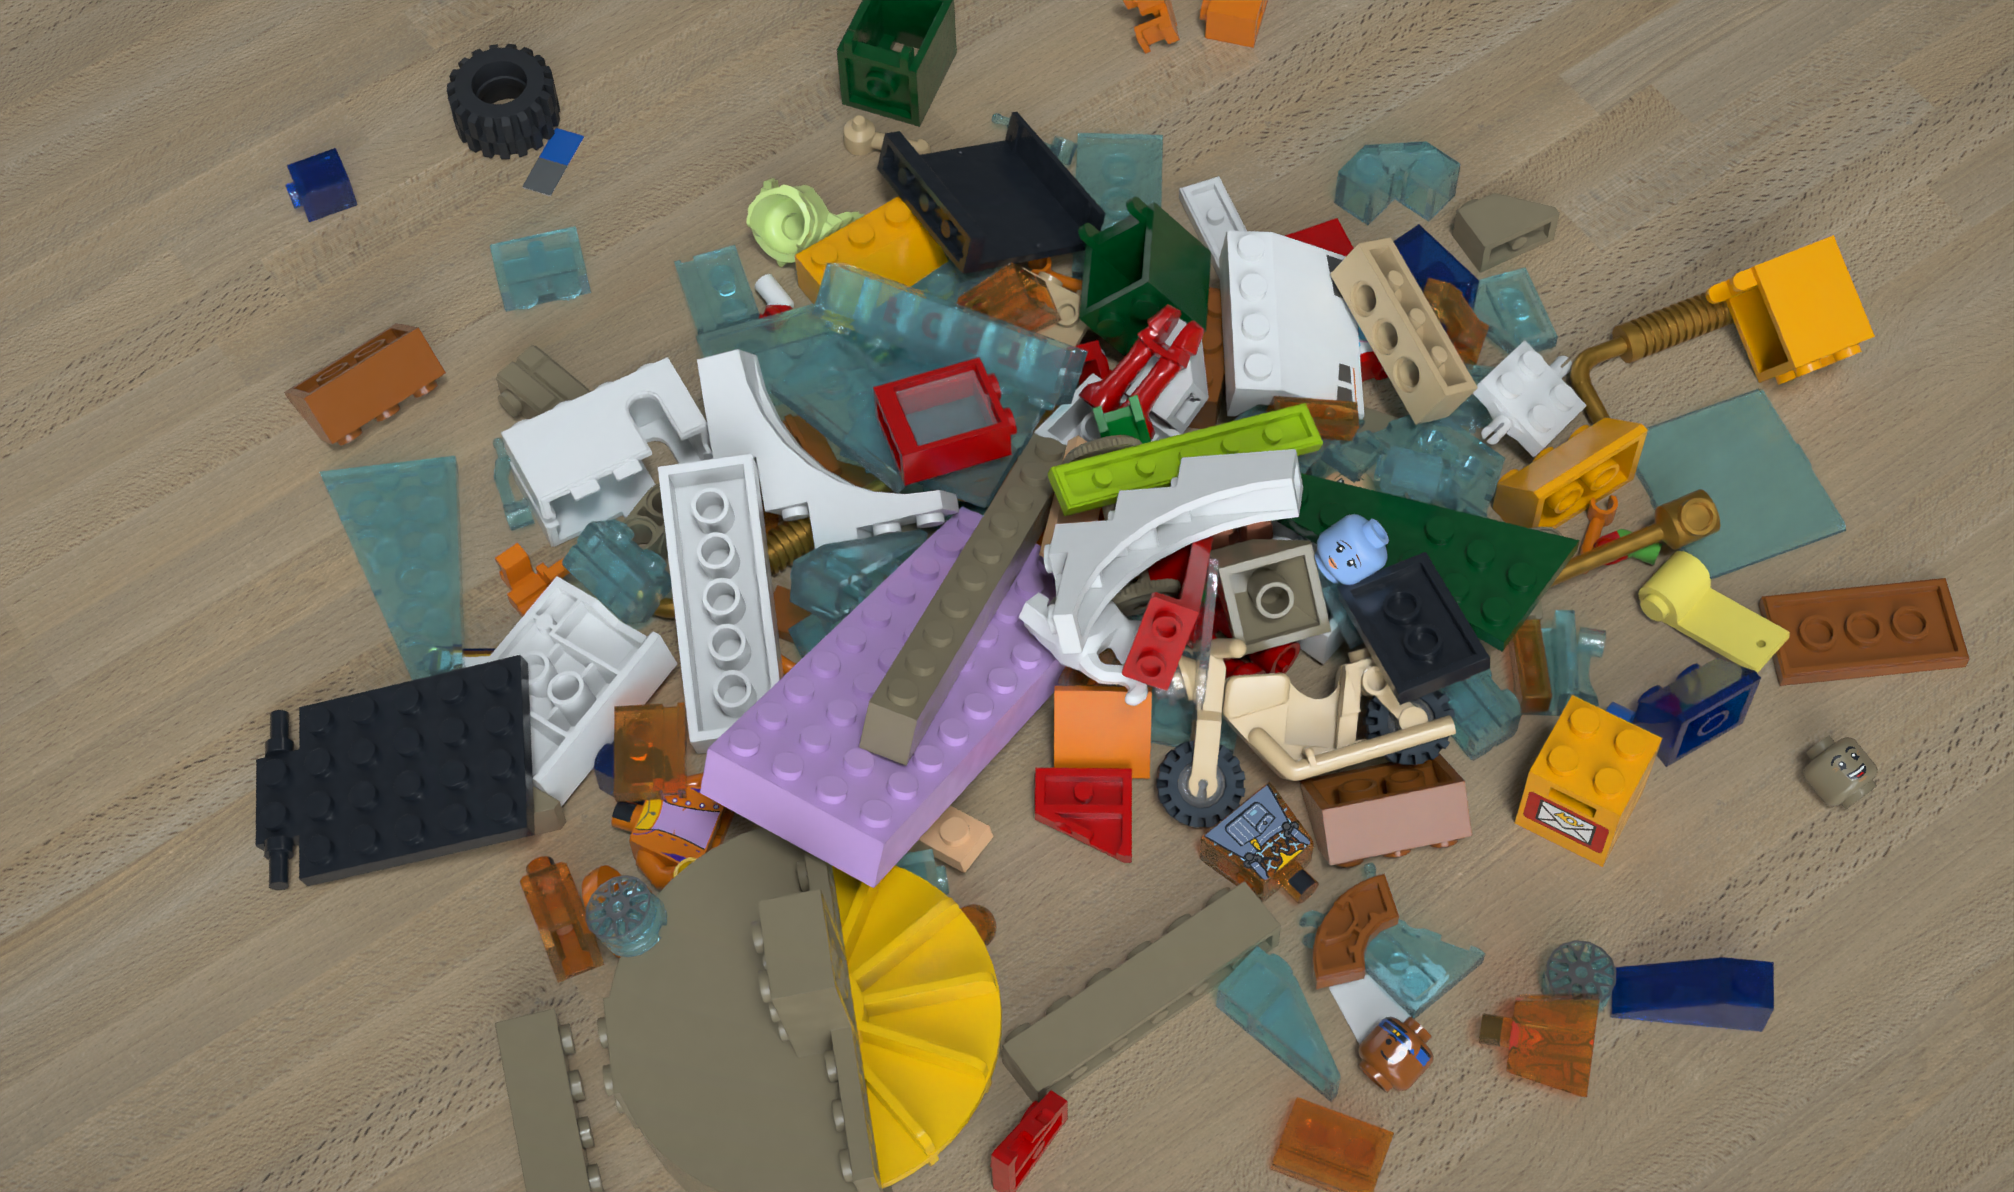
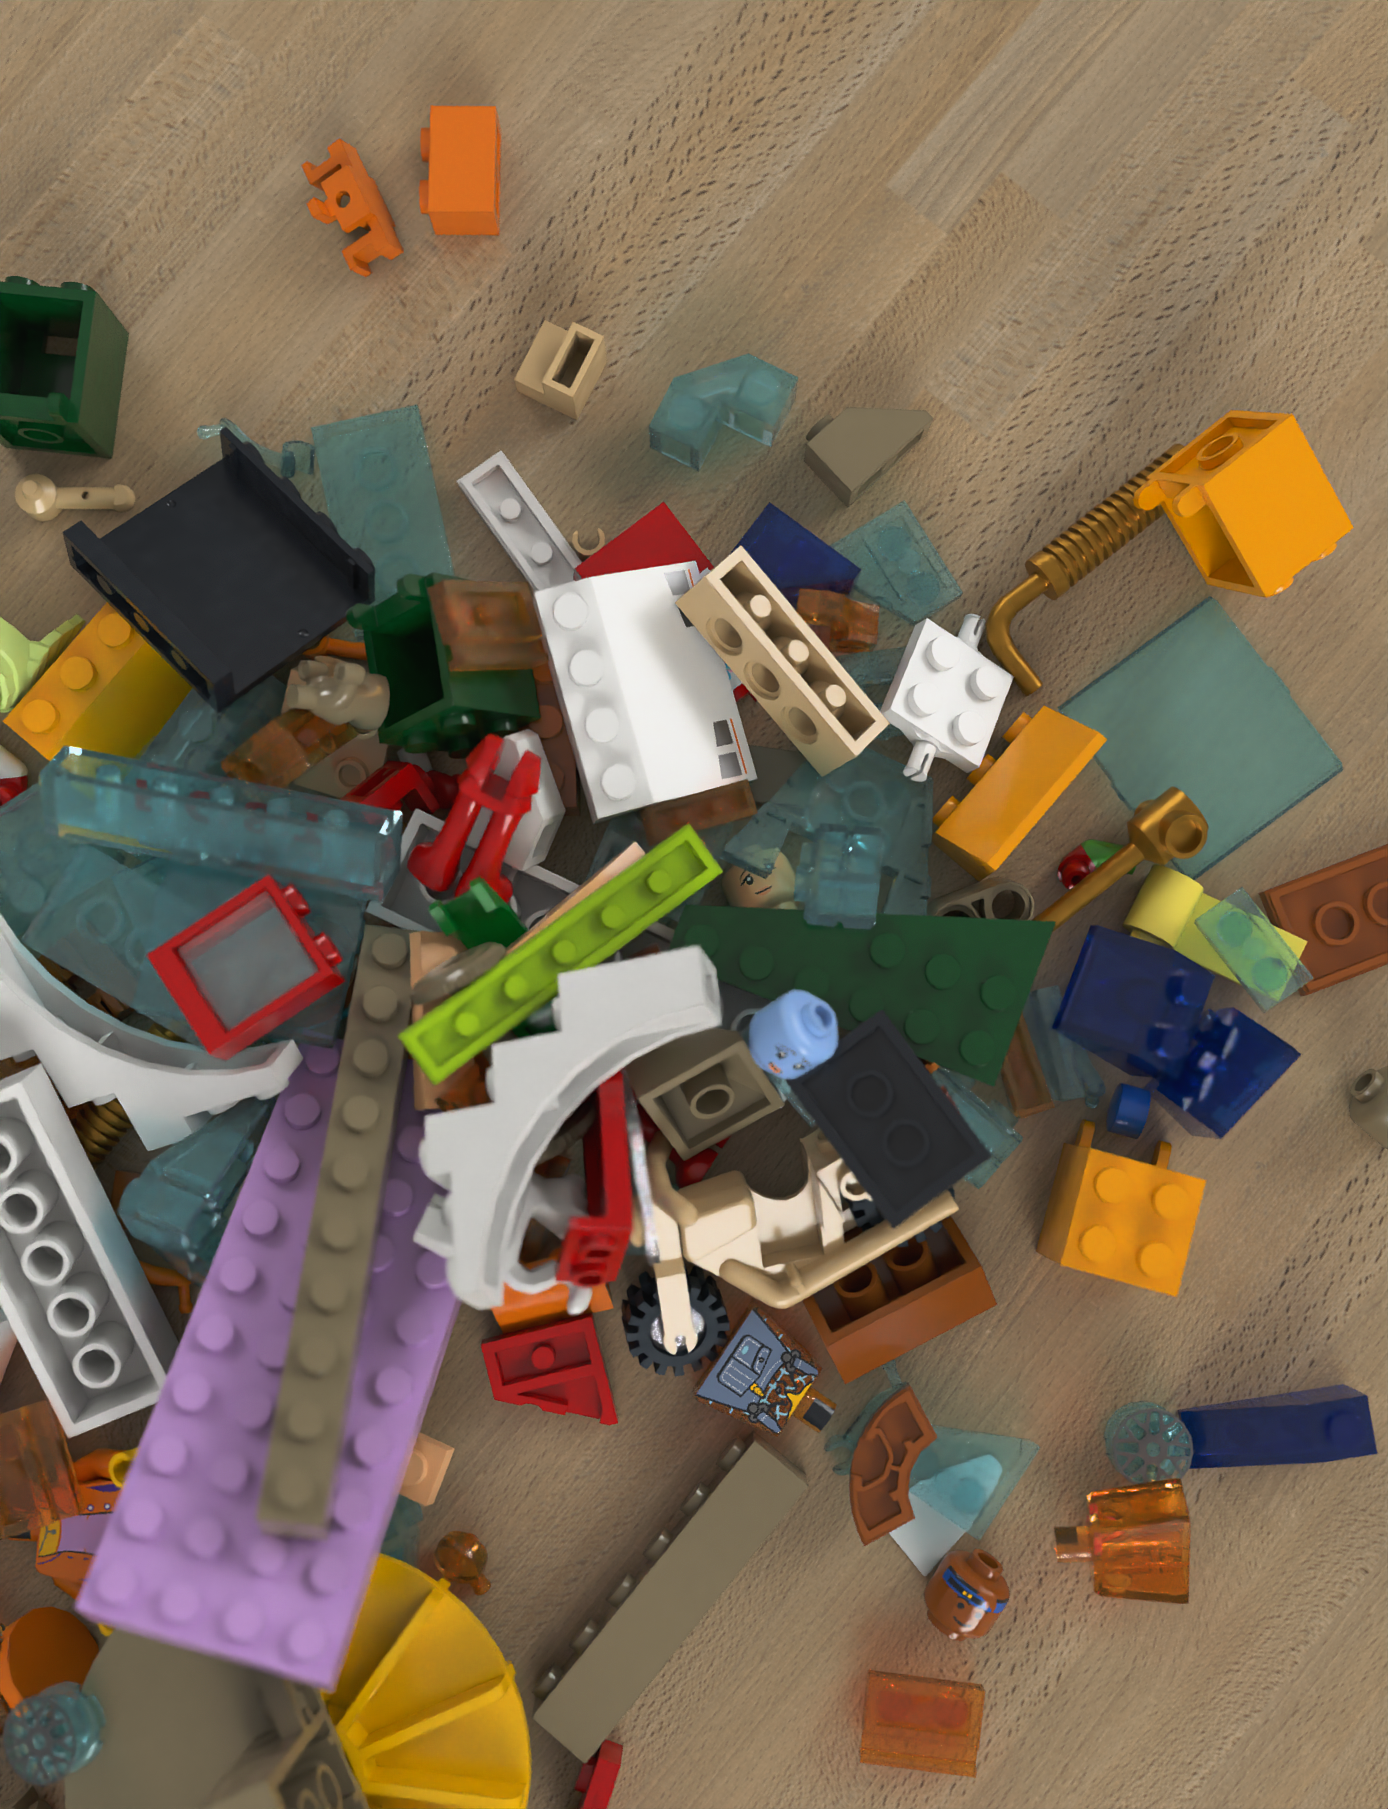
camera: 15 degrees left, 25 degrees up
(1061, 276) = (343, 698): none -> dark tan piece
(1186, 245) = (488, 624): none -> clear orange plate
(1272, 1009) = (818, 1573): clear light blue slope -> none
(1281, 133) = (562, 367): none -> tan piece
(1598, 519) = (1053, 854): orange piece -> none
(1633, 636) = (1133, 1003): none -> clear blue slope
(1741, 622) = (1253, 950): none -> clear light blue plate

